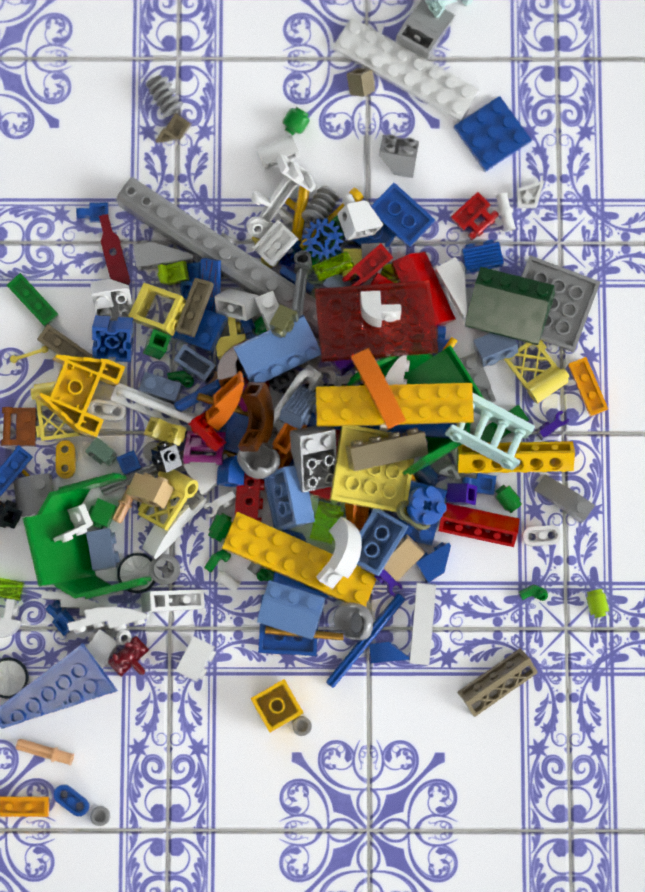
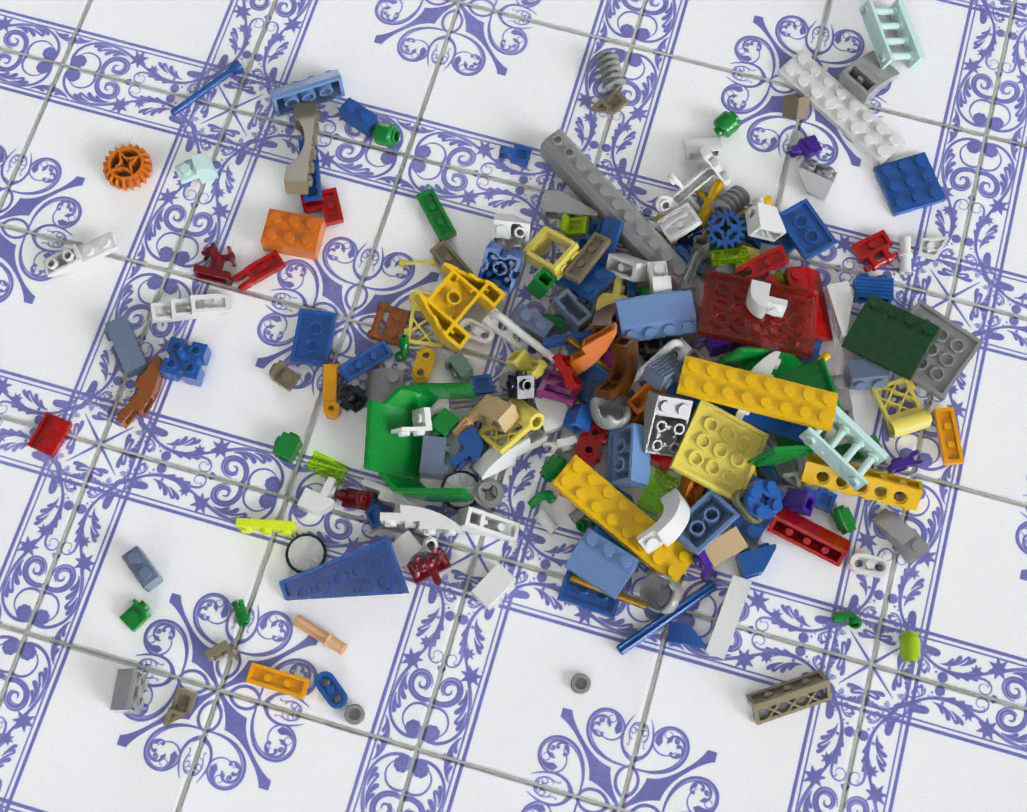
camera: 15 degrees right, 10 degrees down
(38, 612) = (355, 498): none -> dark red hinge
(41, 447) = (404, 348): none -> green arm
(115, 263) = (524, 203): dark red piece -> none
(138, 532) = (472, 449): none -> blue brick
(277, 705) = (562, 654): yellow brick -> none
(283, 321) = (670, 286): olive brick -> none
(378, 388) = (746, 370): orange slope -> none
(381, 122) = (807, 146): none -> dark purple plate
(386, 450) = (737, 434): dark tan brick -> none

